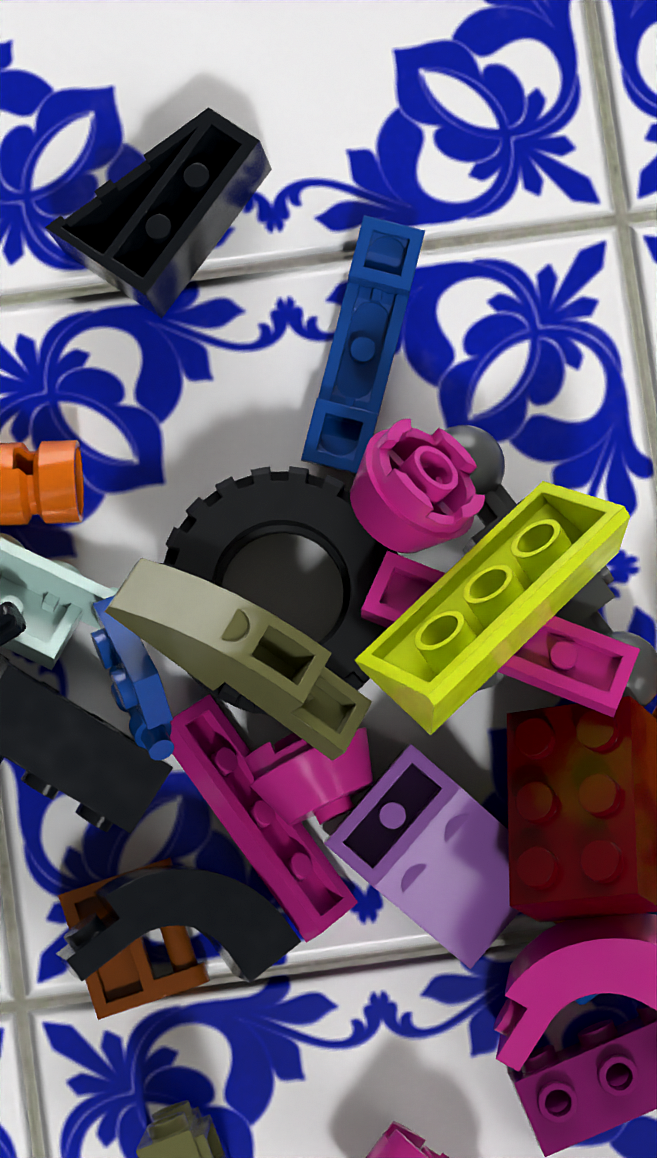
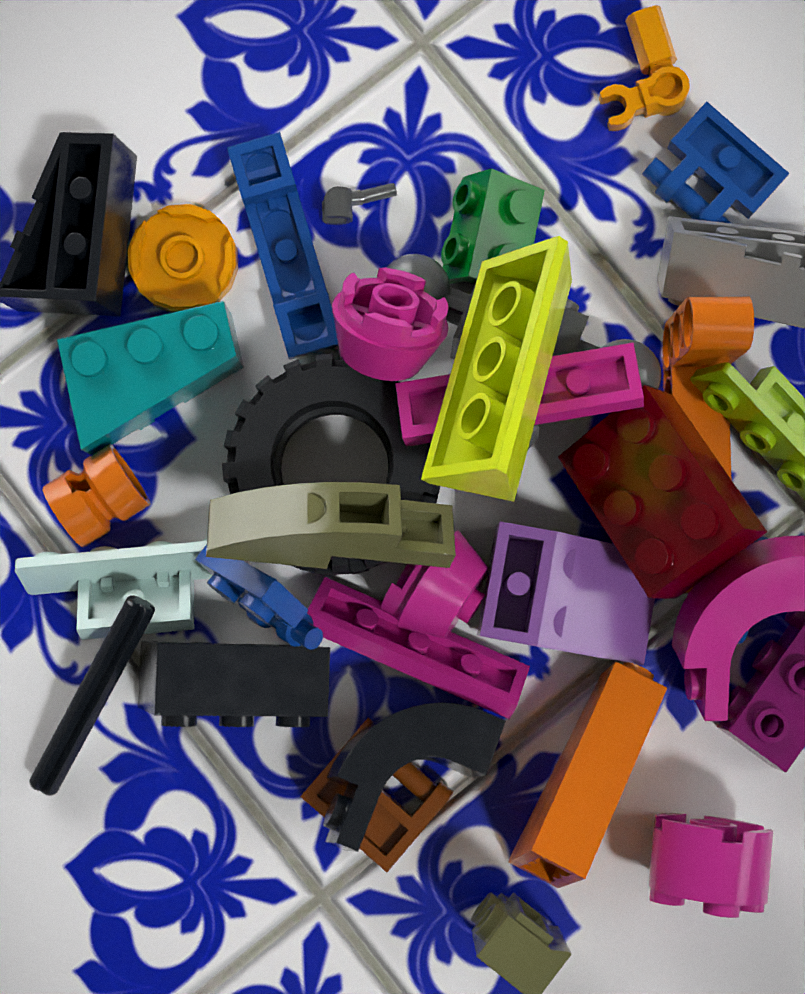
camera: 25 degrees left, 0 degrees up
(154, 386) = (144, 368): none -> teal wedge
(256, 298) = (183, 258): none -> light orange tile
(351, 1045) = (589, 777): none -> orange slope
(443, 331) = (339, 201): none -> dark grey hand
(580, 443) = (489, 220): none -> green bracket

